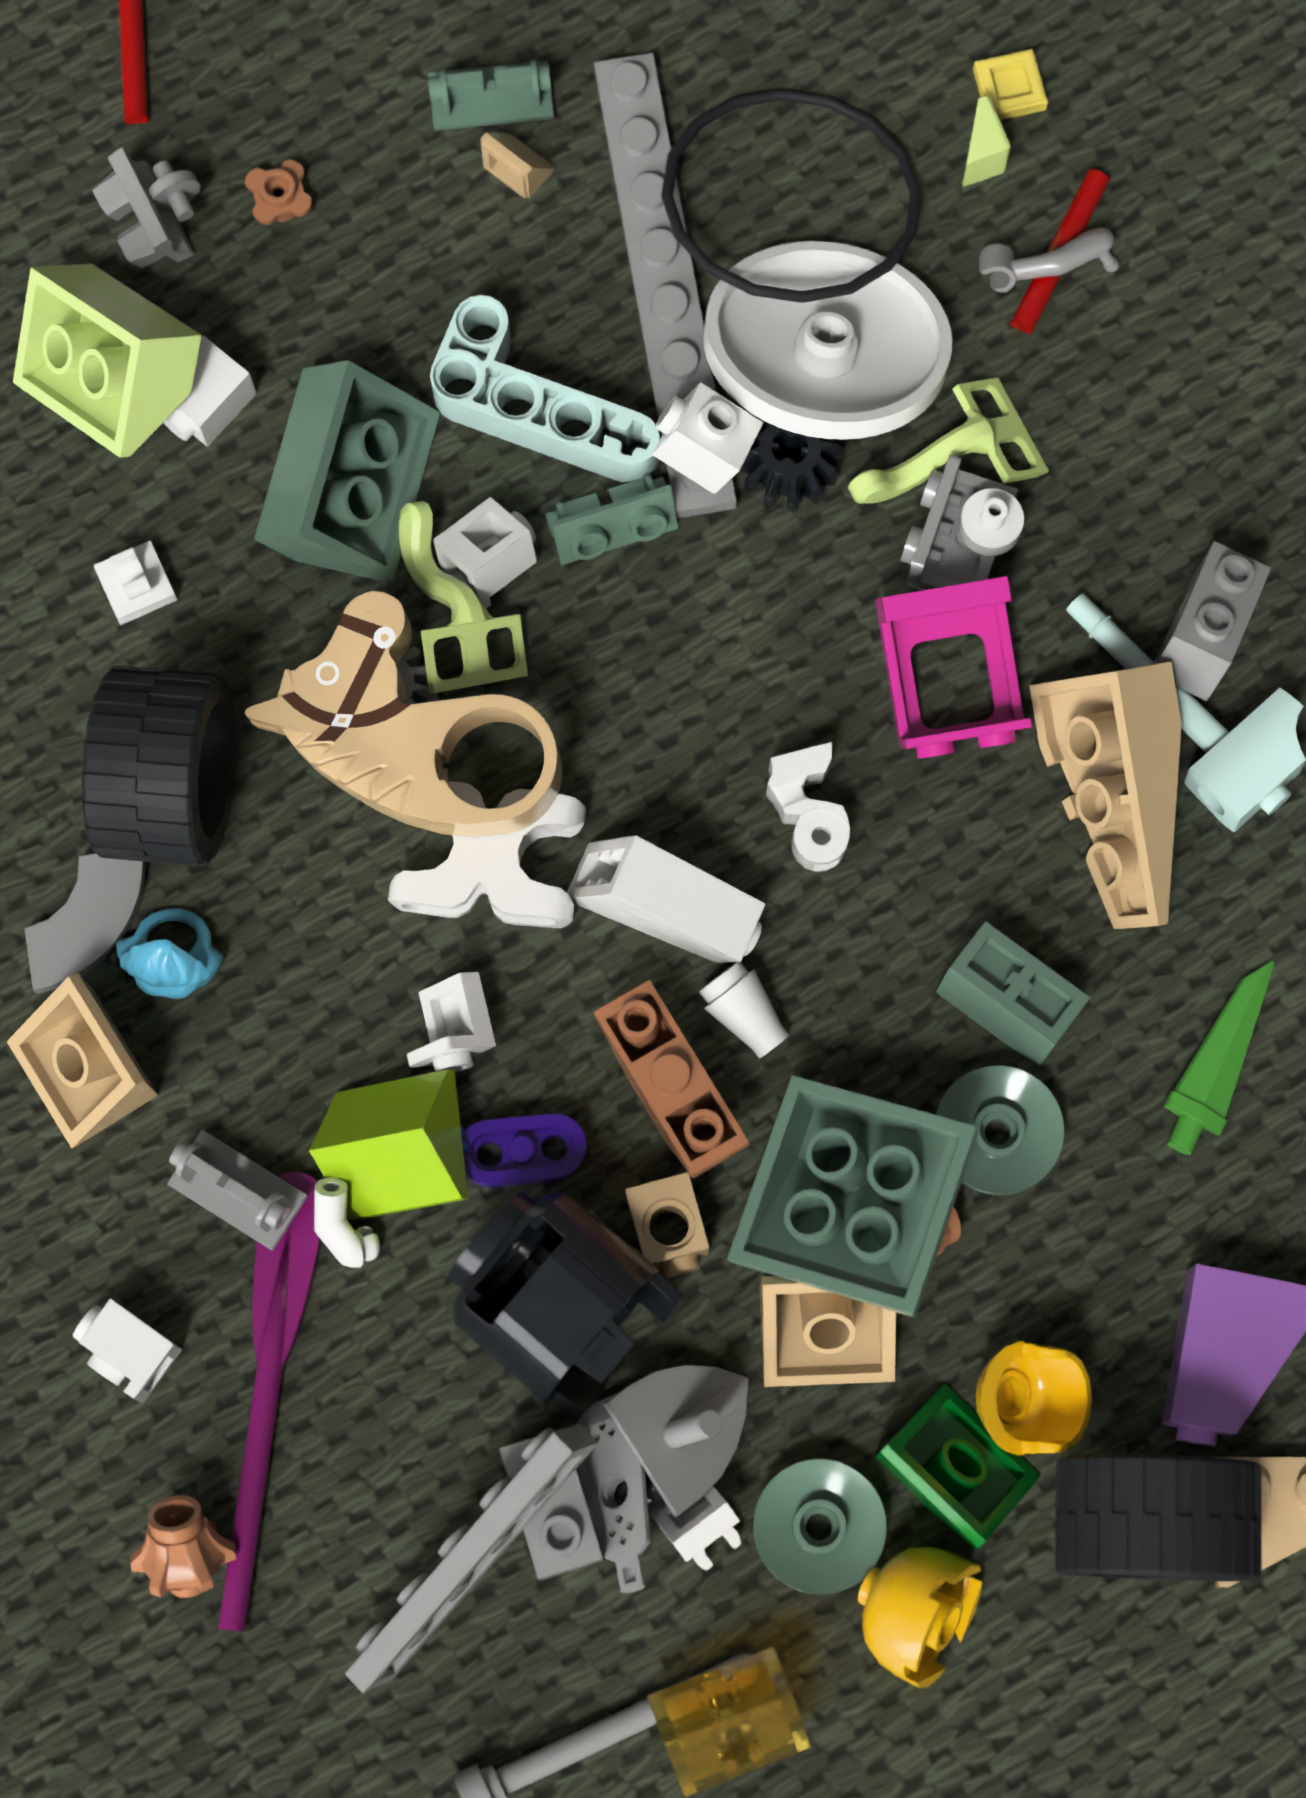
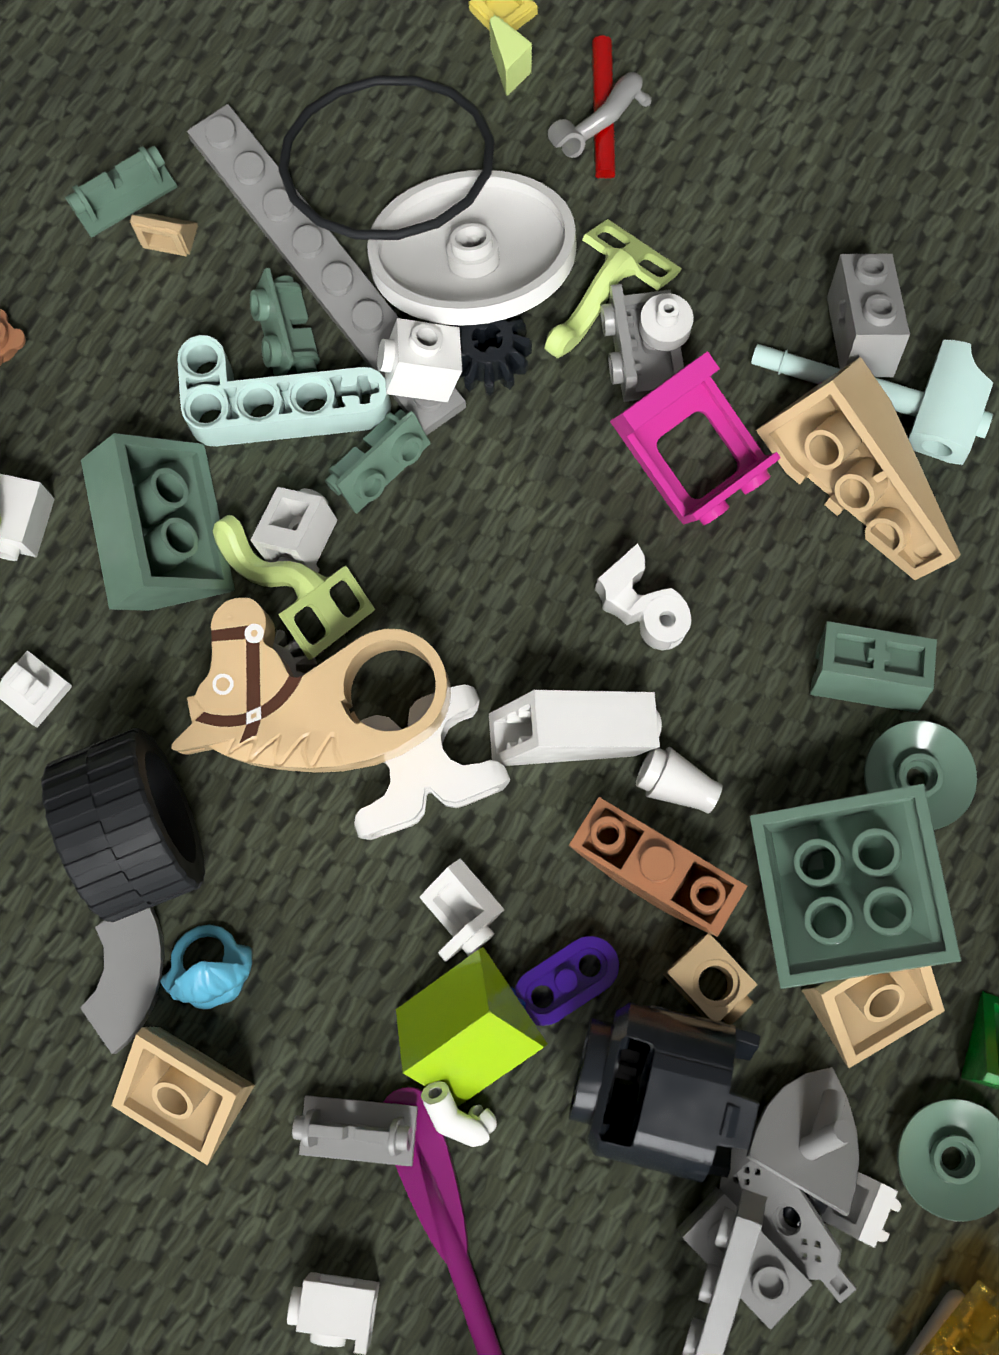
camera: 25 degrees left, 0 degrees up
(589, 304) = (277, 307): none -> sand green hinge

